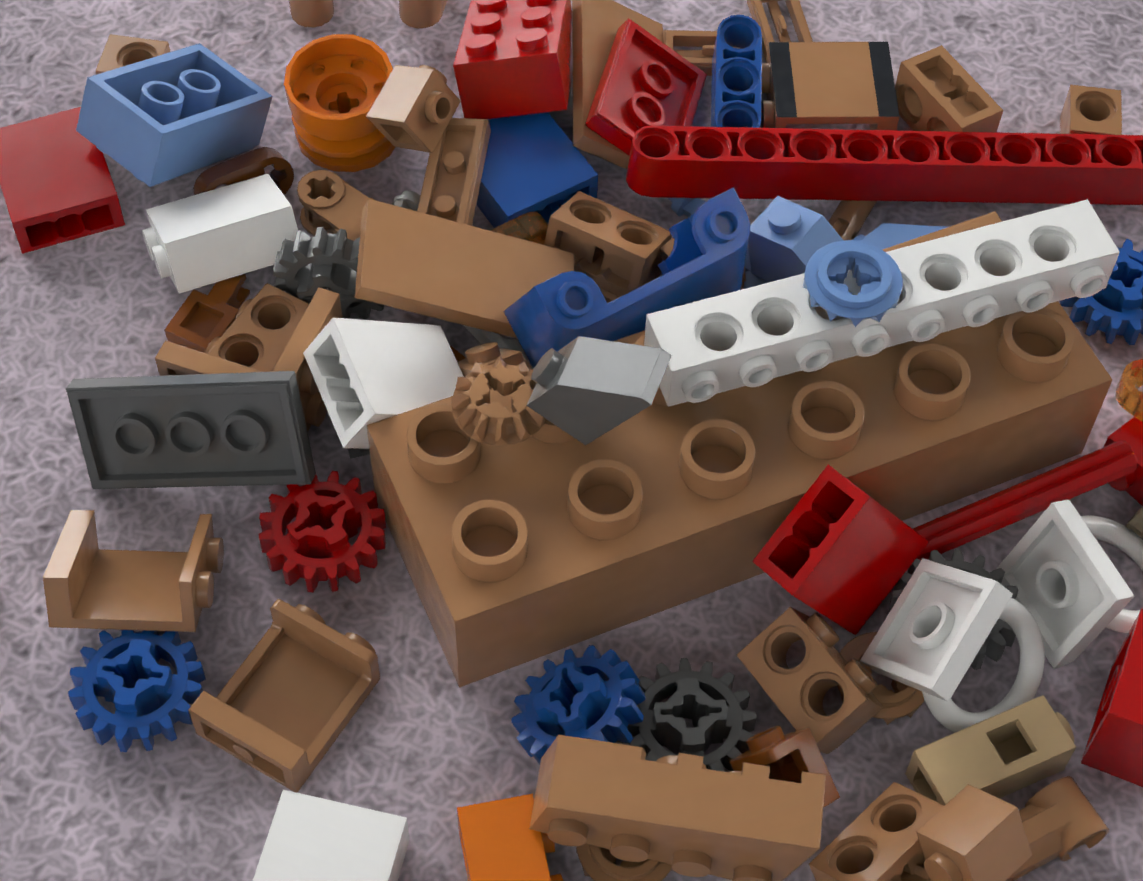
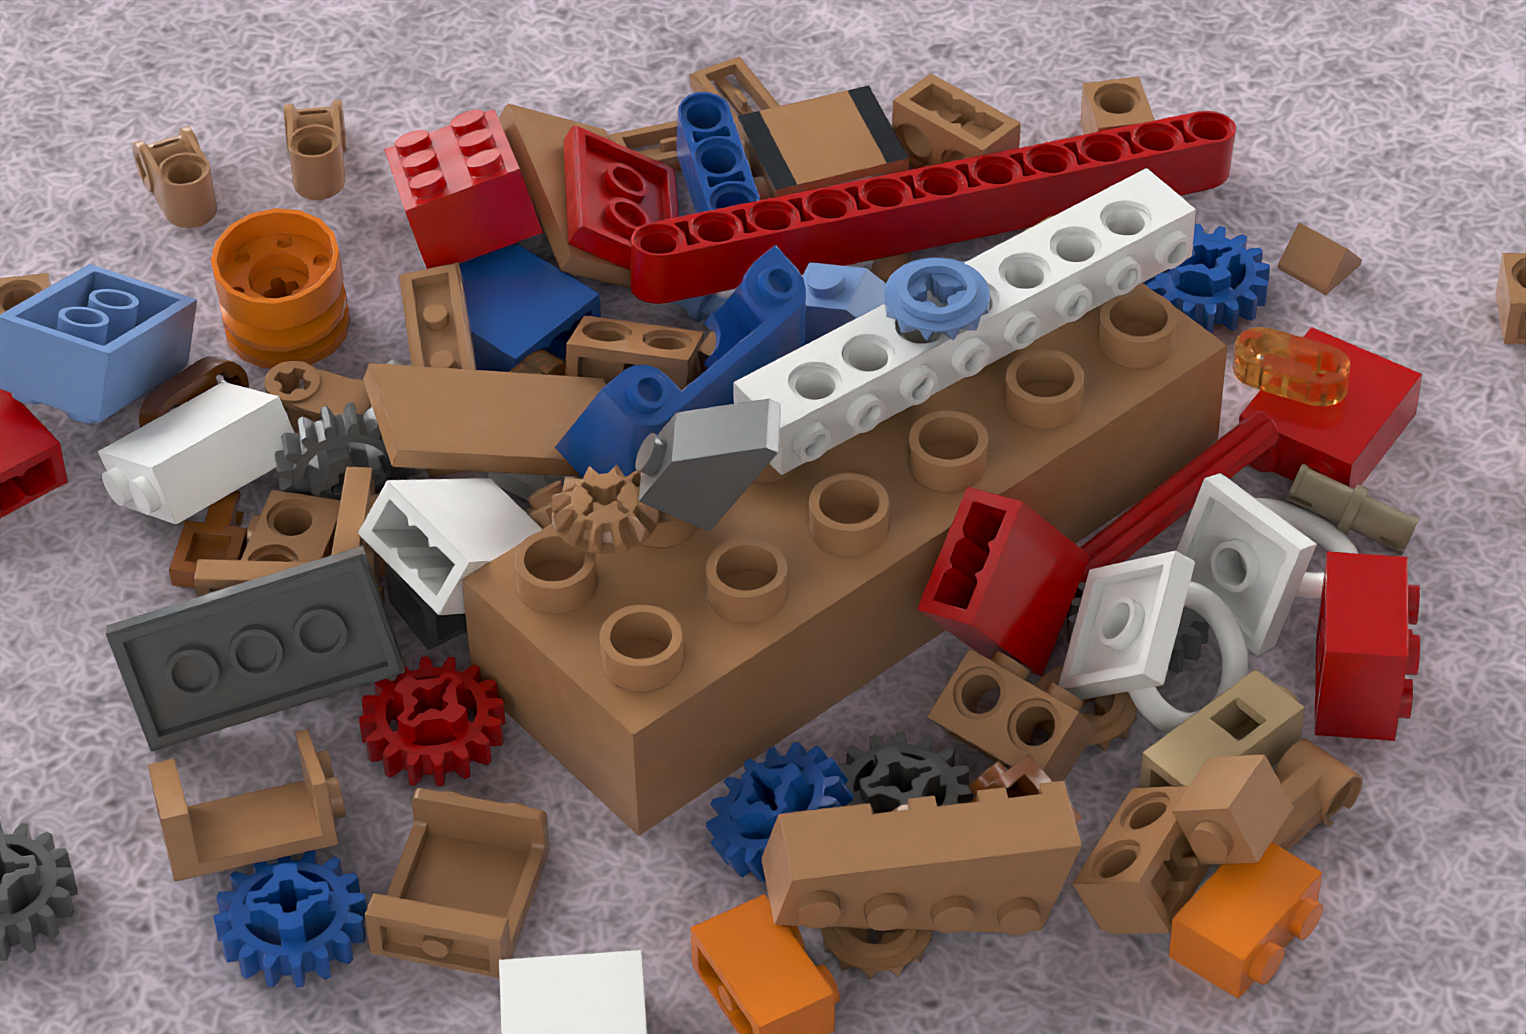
camera: 15 degrees left, 10 degrees down
(414, 107) = (373, 268): medium nougat brick -> none

